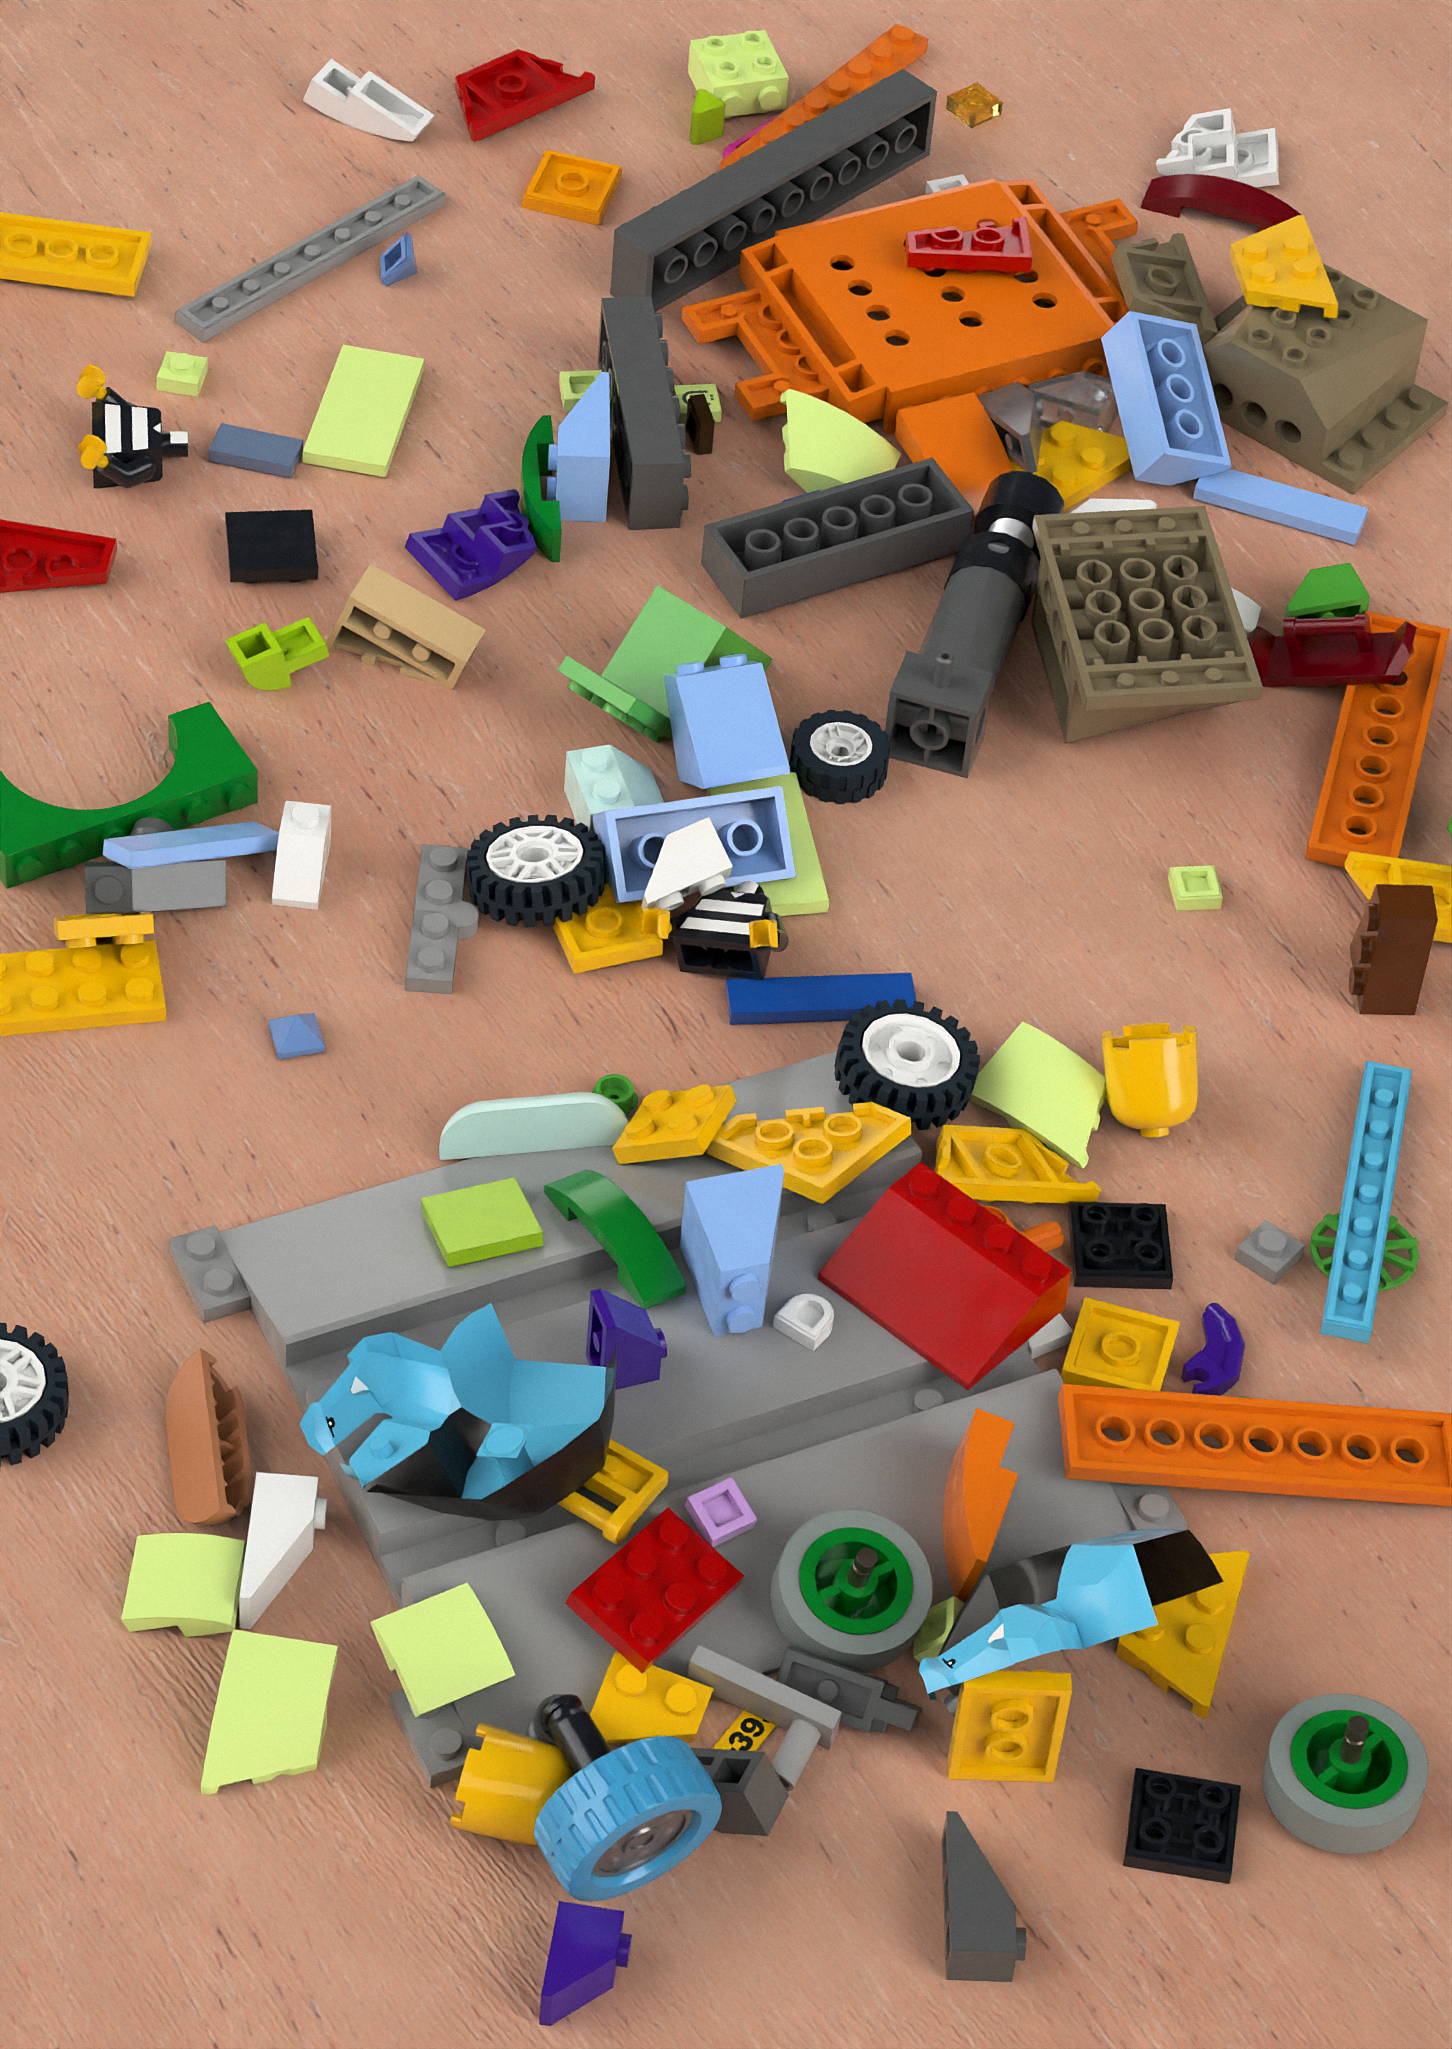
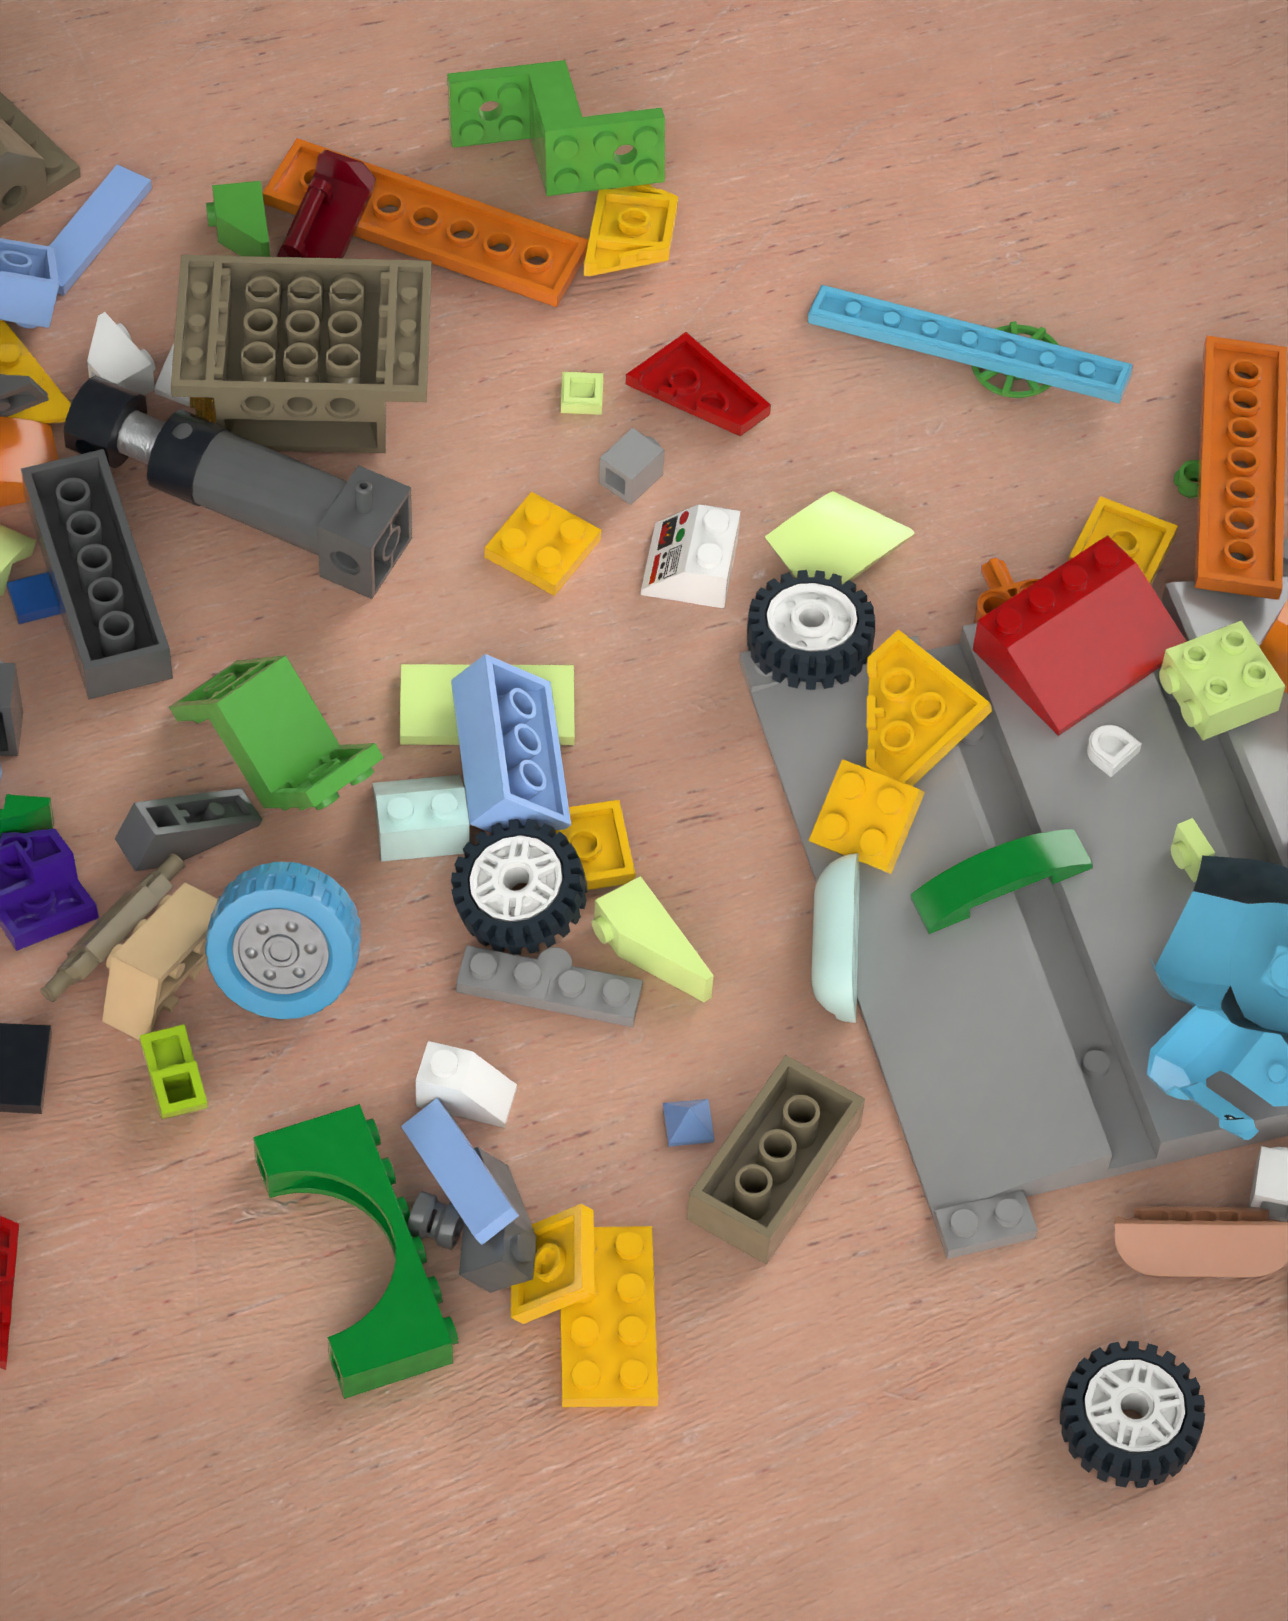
camera: 80 degrees left, 10 degrees up
(247, 1084) = (775, 1159): none -> dark tan brick
(423, 684) = (283, 940): none -> dark azure wheel
(448, 596) = (113, 927): none -> dark tan piece
(482, 1222) = (970, 983): lime tile -> none
(507, 975) = (649, 938): none -> yellowish green slope
(554, 624) = (184, 826): none -> dark grey slope
(617, 1089) = (798, 861): bright green plate -> none
(628, 1325) = (1156, 881): dark purple slope -> none
(675, 1384) = (1189, 846): none -> yellowish green plate
(687, 863) = (565, 753): white slope -> none
(722, 933) = (621, 740): black torso -> none
(724, 723) = (376, 694): light blue slope -> none
(731, 1244) = (1062, 773): light blue slope -> none
(813, 997) = (688, 694): blue tile -> none
(840, 756) = (369, 613): black wheel -> none
(908, 1397) = (1221, 680): none -> yellowish green brick
(984, 872) = (542, 543): none -> yellow plate
(995, 990) = (693, 556): none -> white slope
(1006, 1166) = (924, 587): yellow wing -> none
(1100, 924) = (631, 466): none -> light grey brick
(1120, 1245) = (996, 525): black tile -> none
(1151, 1076) = (840, 450): yellow cylinder -> none
(1222, 1356) = (1128, 482): dark purple piece -> none
(1232, 975) = (700, 385): none -> red wing
(1269, 1252) = (1012, 425): light grey plate -> none
(1392, 949) = (712, 255): reddish brown wedge -> none

